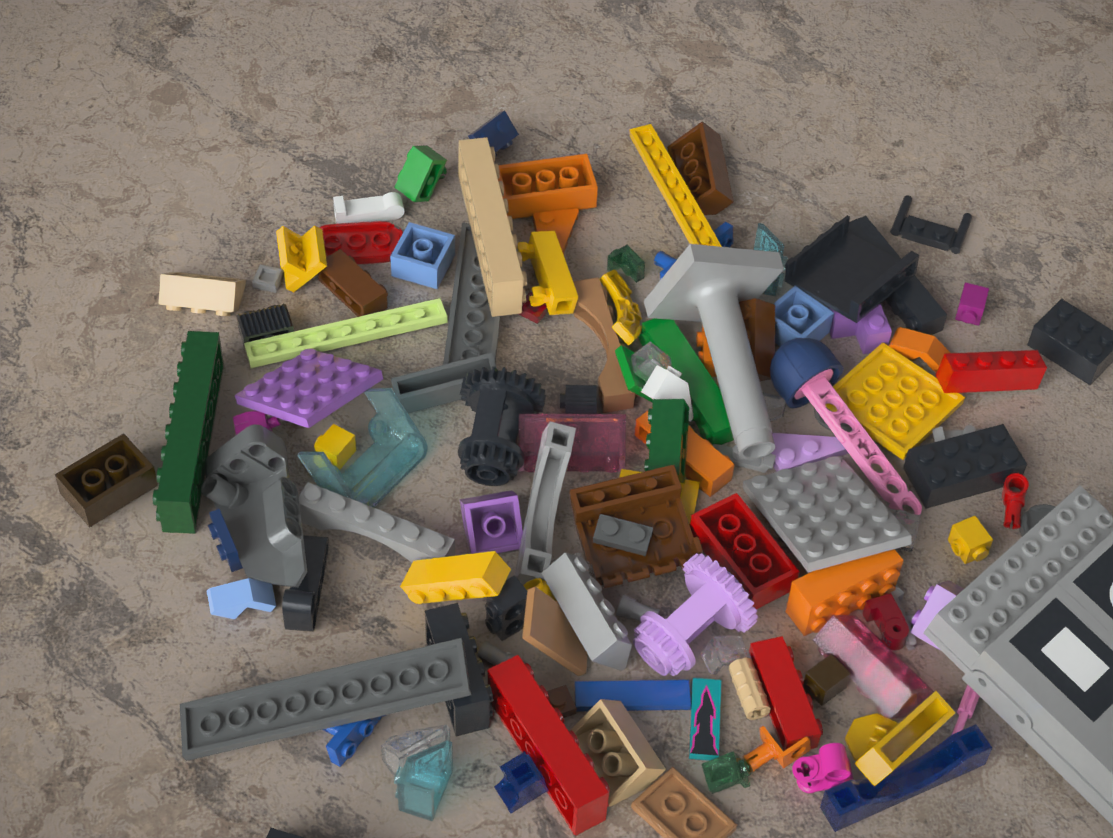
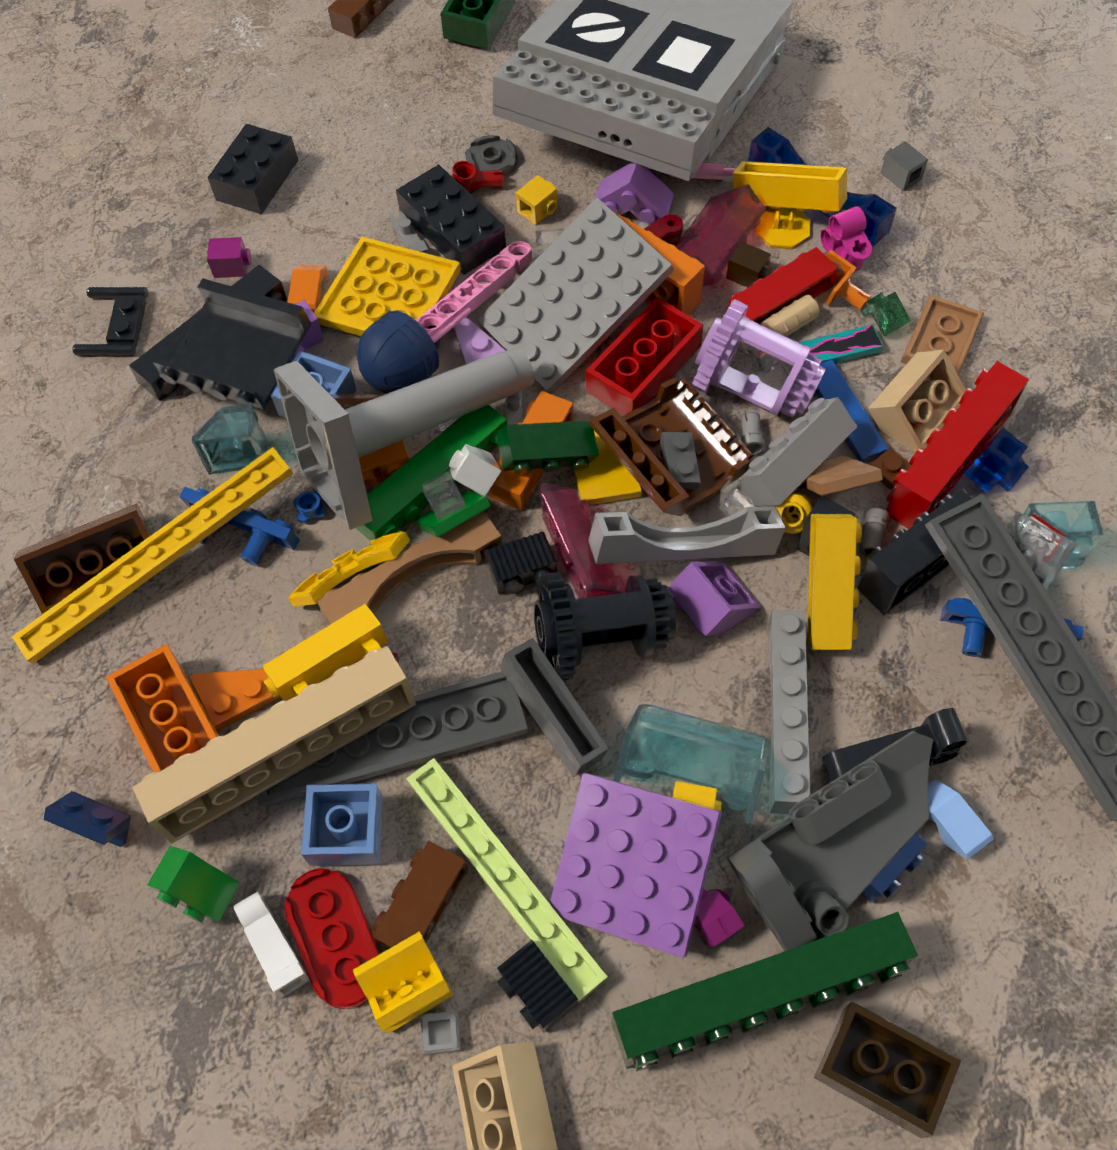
camera: 105 degrees left, 10 degrees up
(629, 262) = (269, 585): clear green bracket -> none
(991, 371) = (325, 217): red brick -> none

